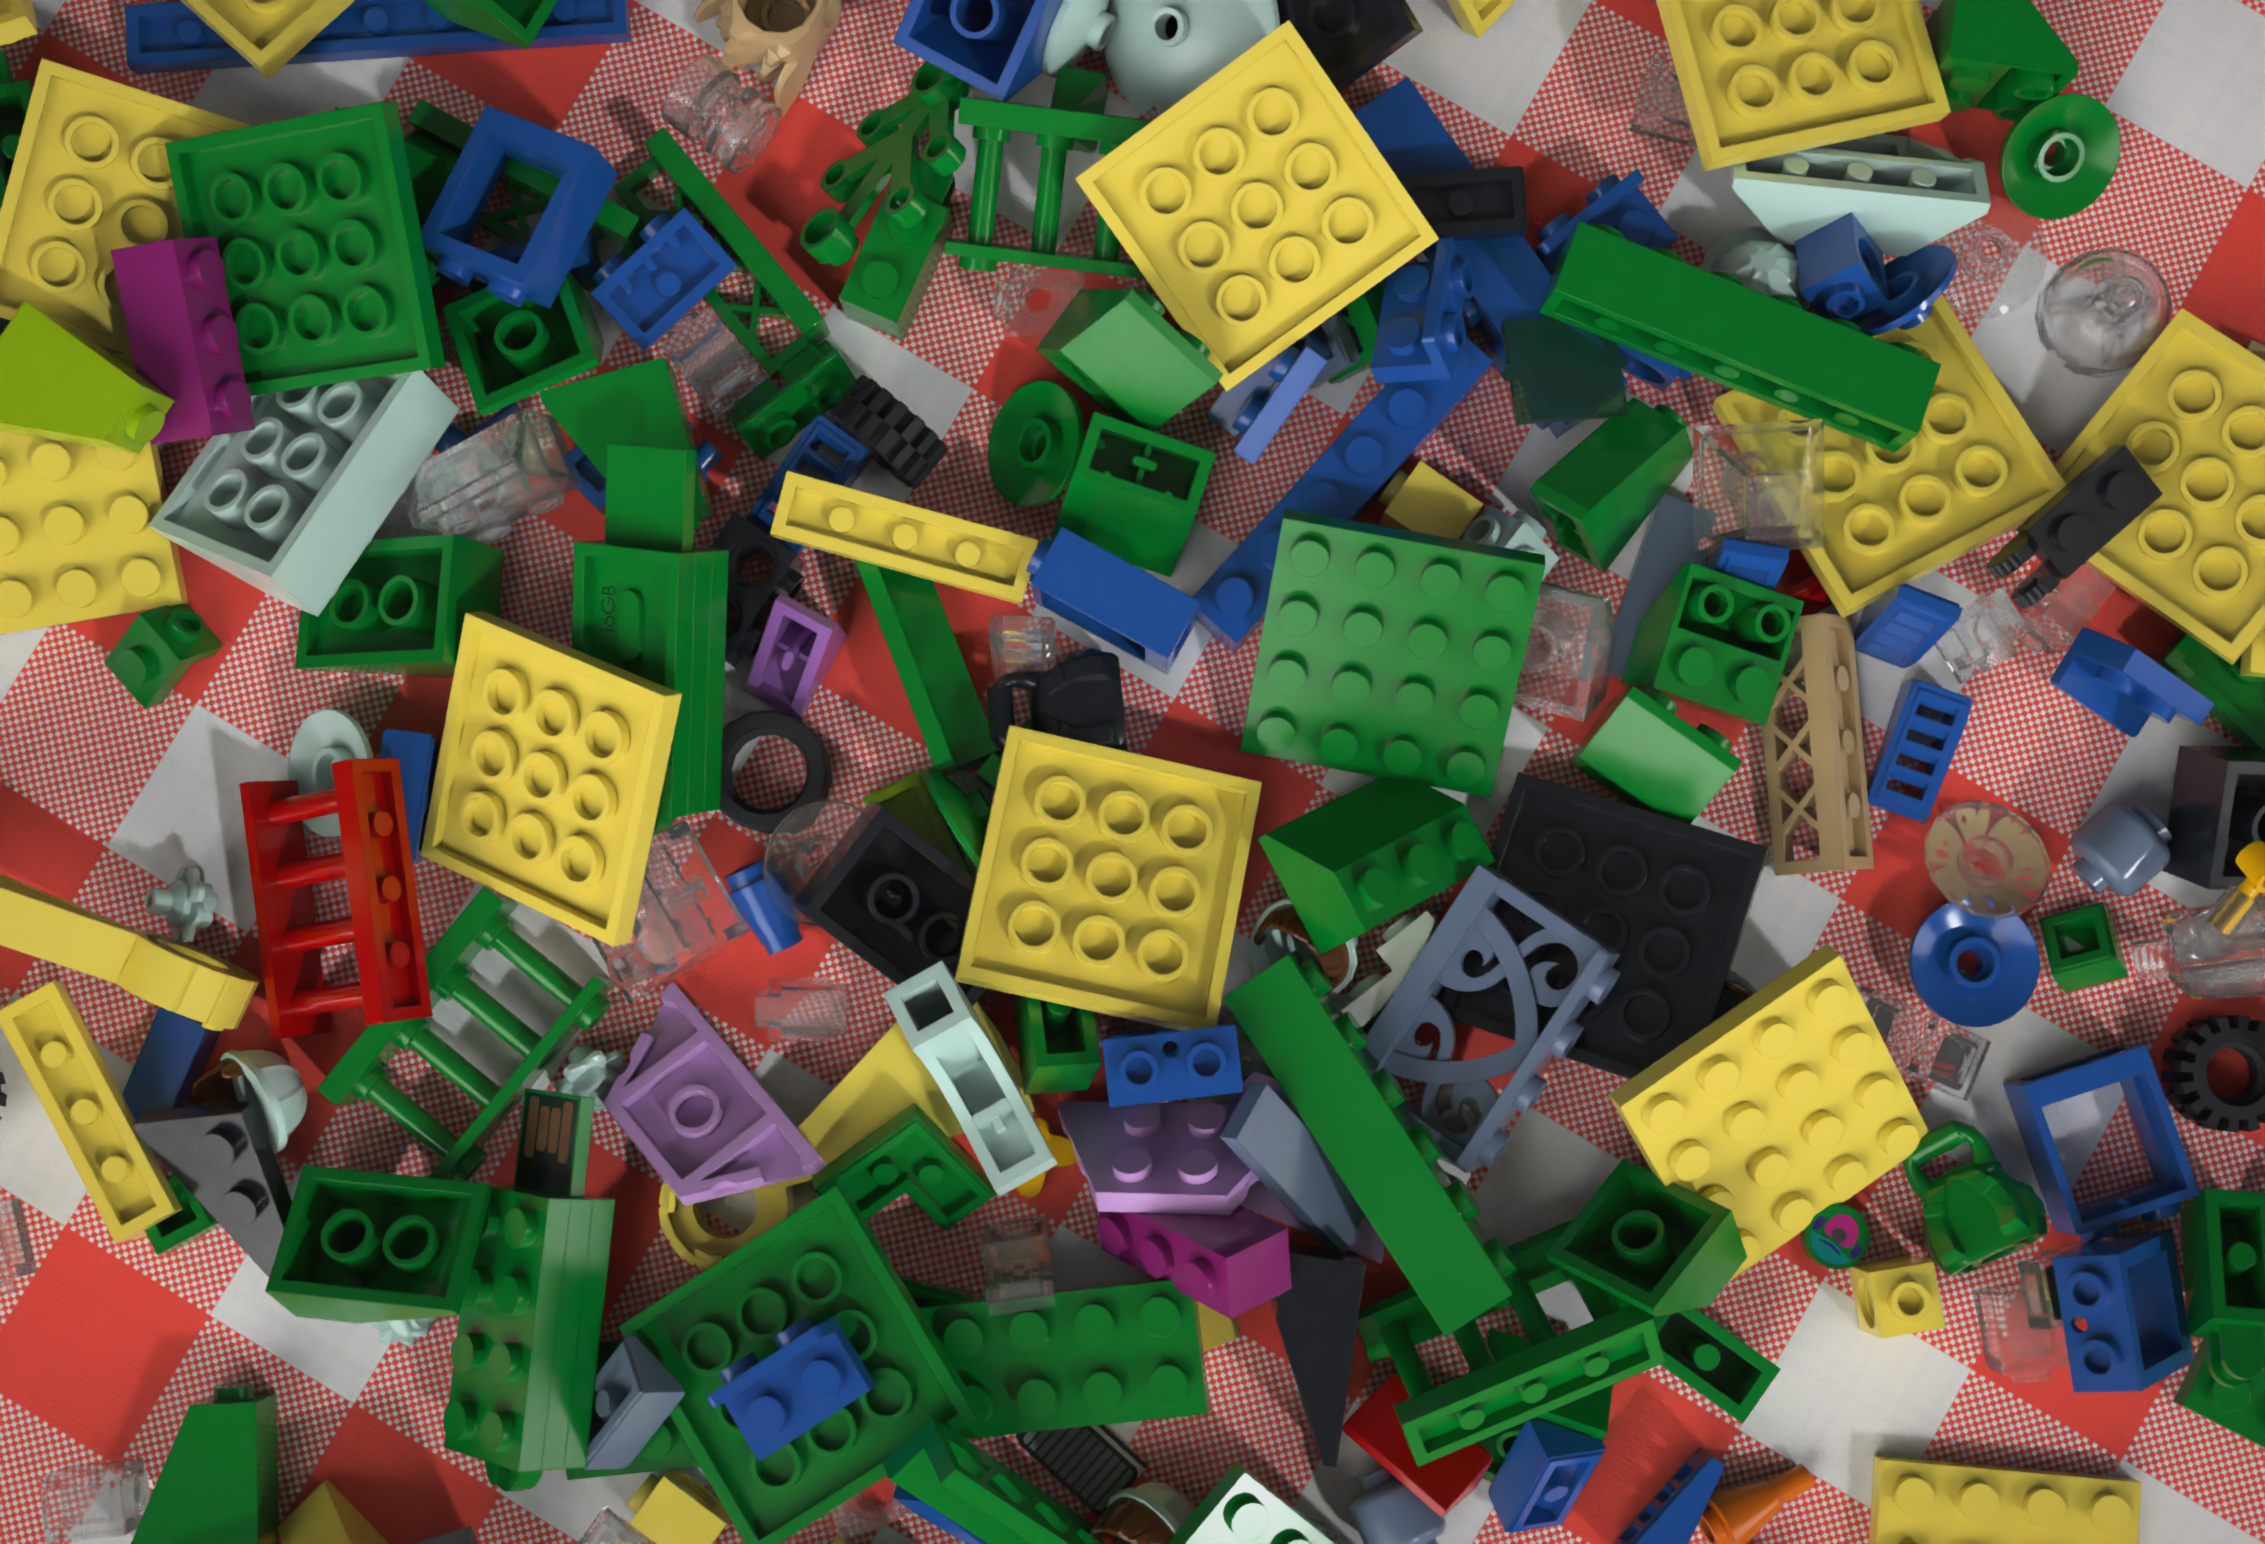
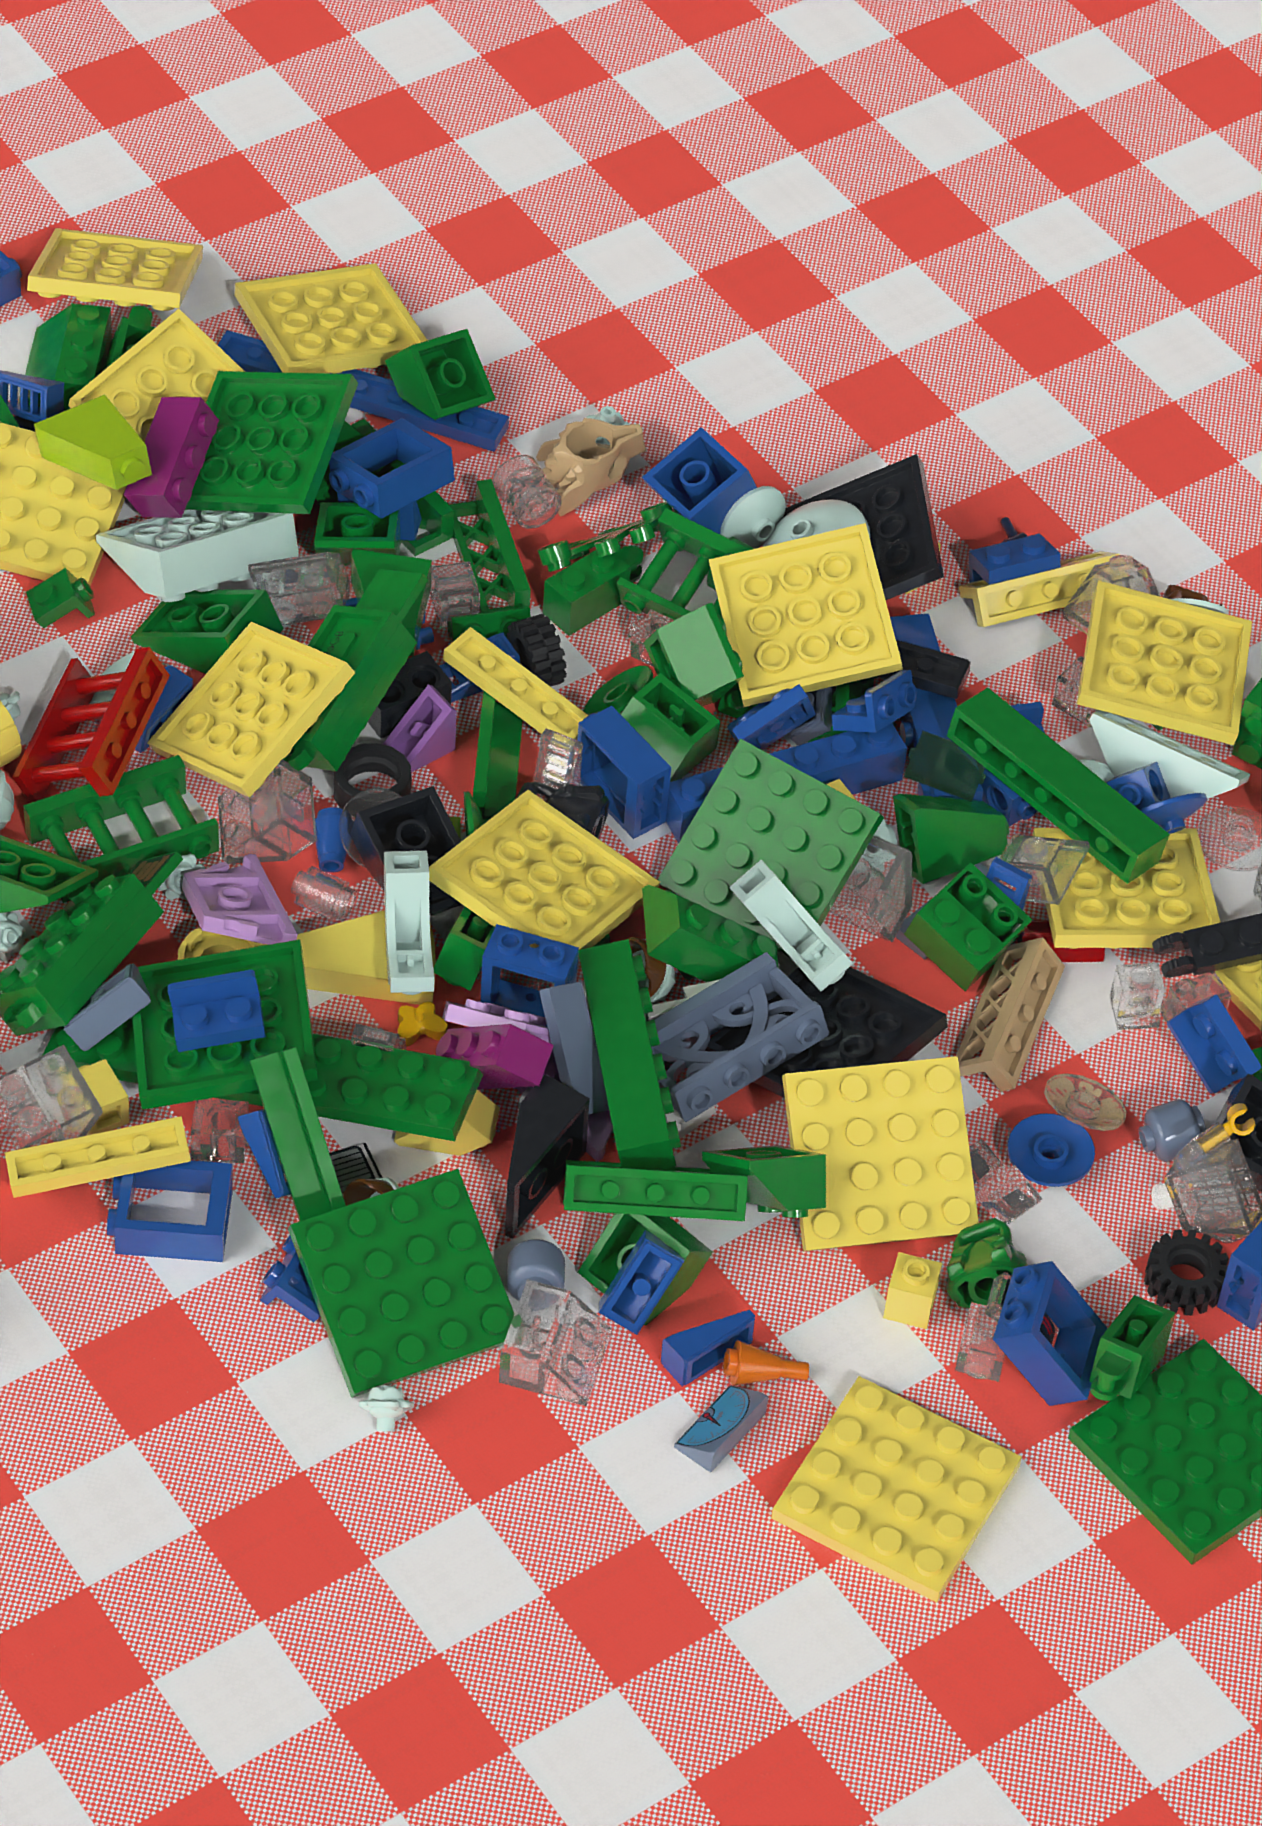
camera: 20 degrees right, 35 degrees down
(662, 277) = (451, 538): blue bracket -> none
(911, 1158) = (350, 977): green tile -> none
(1438, 1483) = (571, 1236): red slope -> none
(1475, 777) = (791, 926): none -> light aqua arch
(1655, 756) = (905, 956): green slope -> none
(1712, 1360) = (771, 1259): green brick -> none
(1836, 1237) = (884, 1254): tile -> none
(1904, 625) = (1089, 969): blue slope -> none
(1947, 735) = (1089, 1021): blue slope -> none
(2083, 947) = (1126, 1177): green slope -> none
(2154, 1123) = (1109, 1235): blue window -> none

